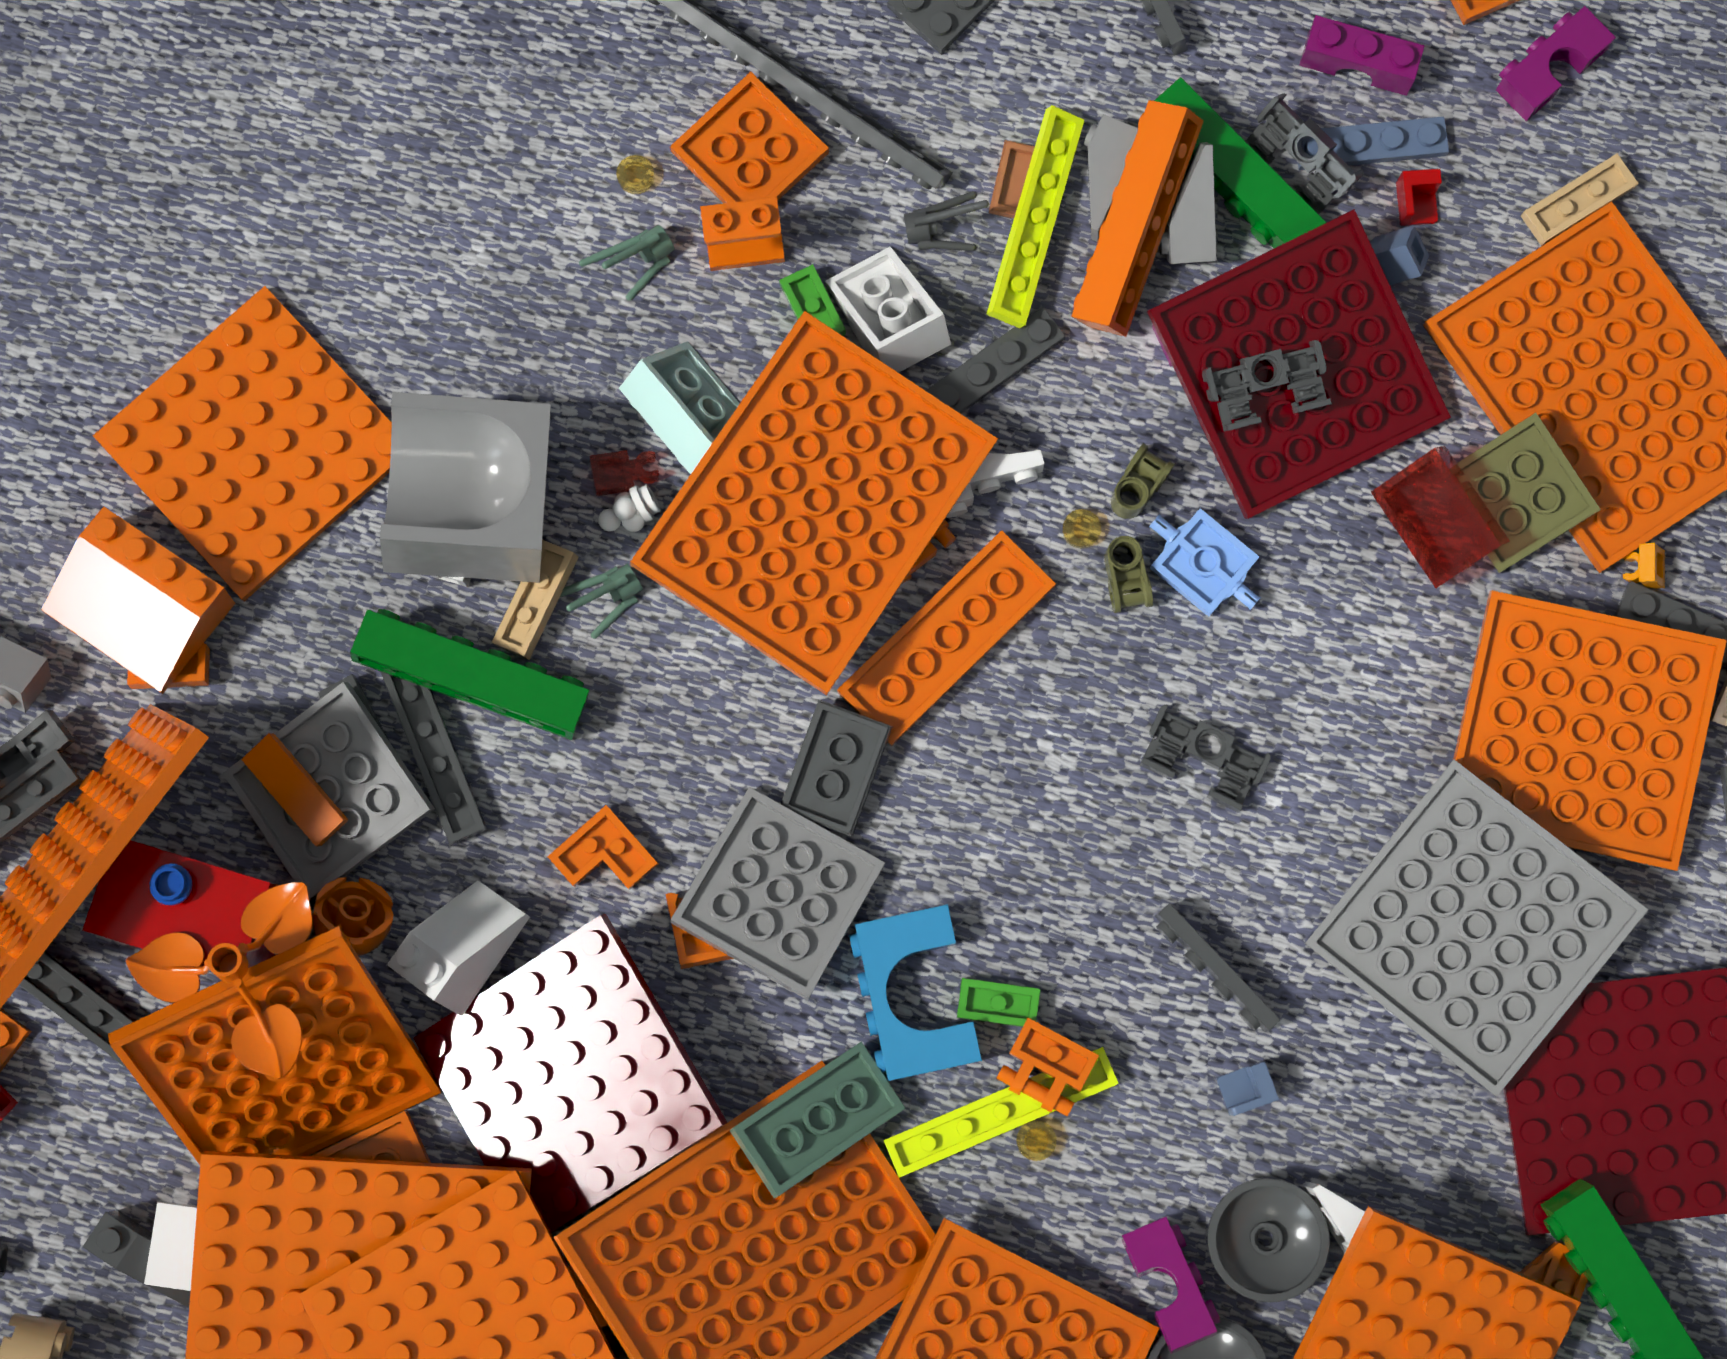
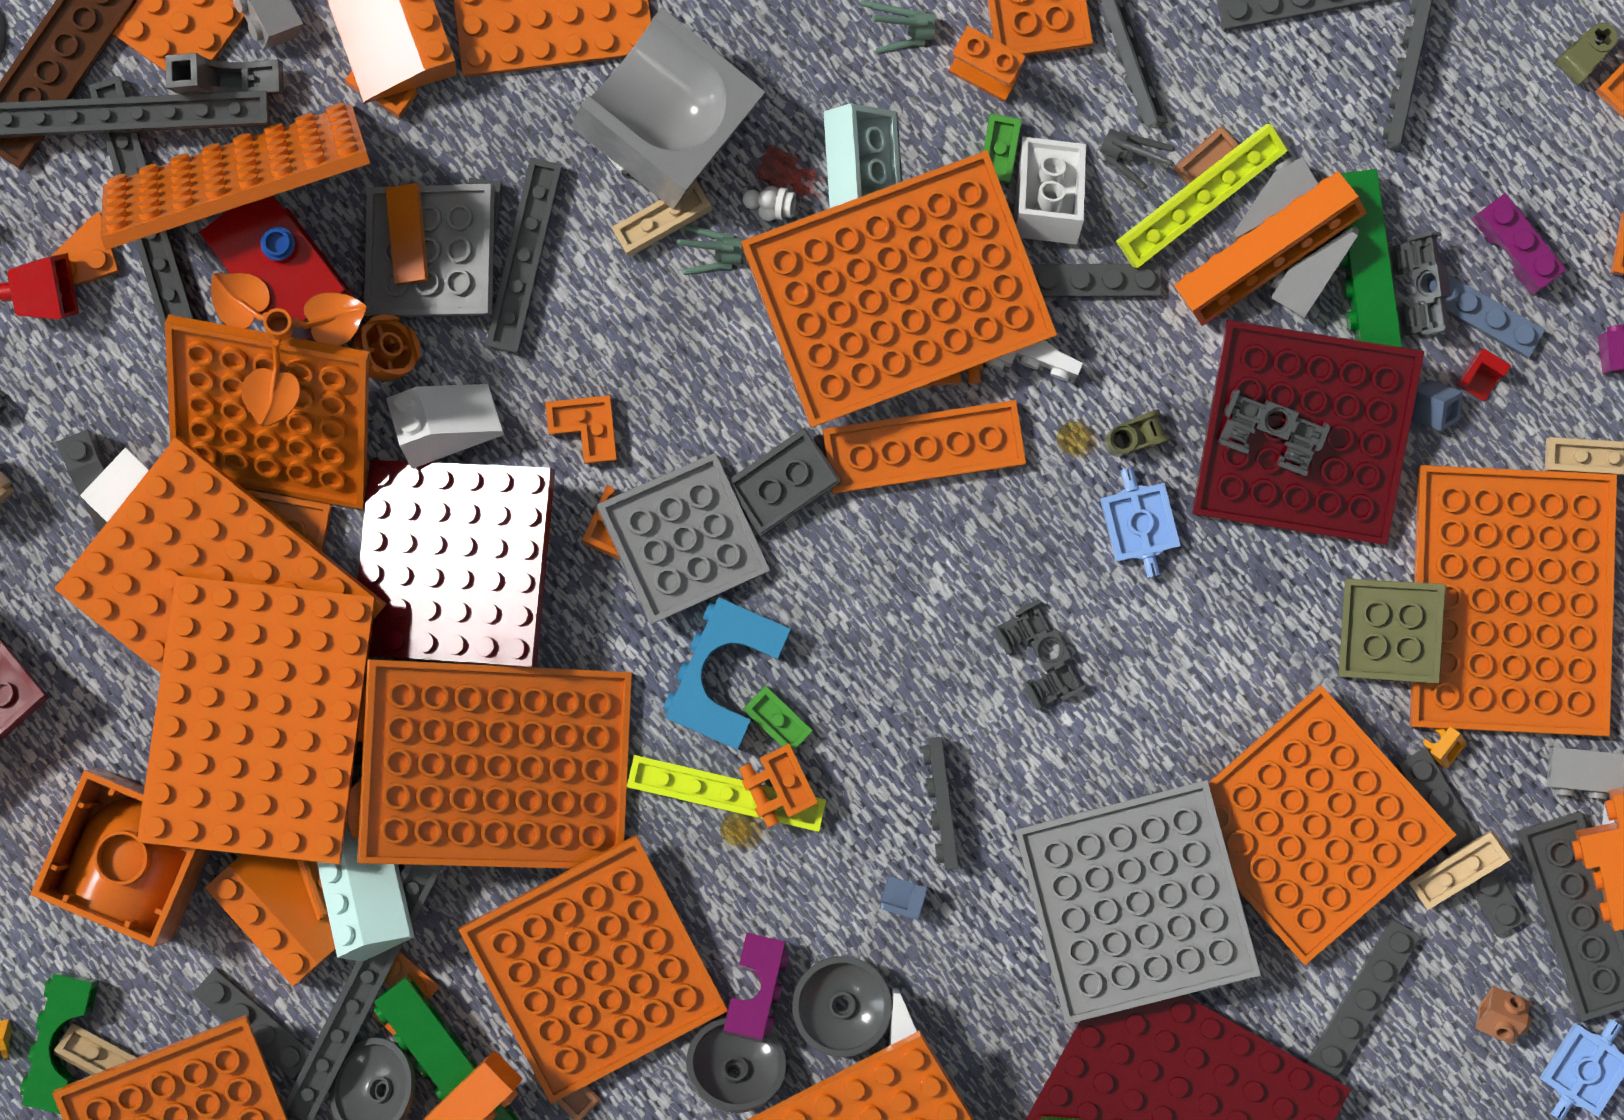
camera: 35 degrees right, 5 degrees up
(469, 673) = (580, 239): green brick -> none
(817, 1119) = (599, 709): sand green plate -> none
(1128, 577) = (1078, 495): olive piece -> none
(1440, 516) = (1324, 608): clear red piece -> none

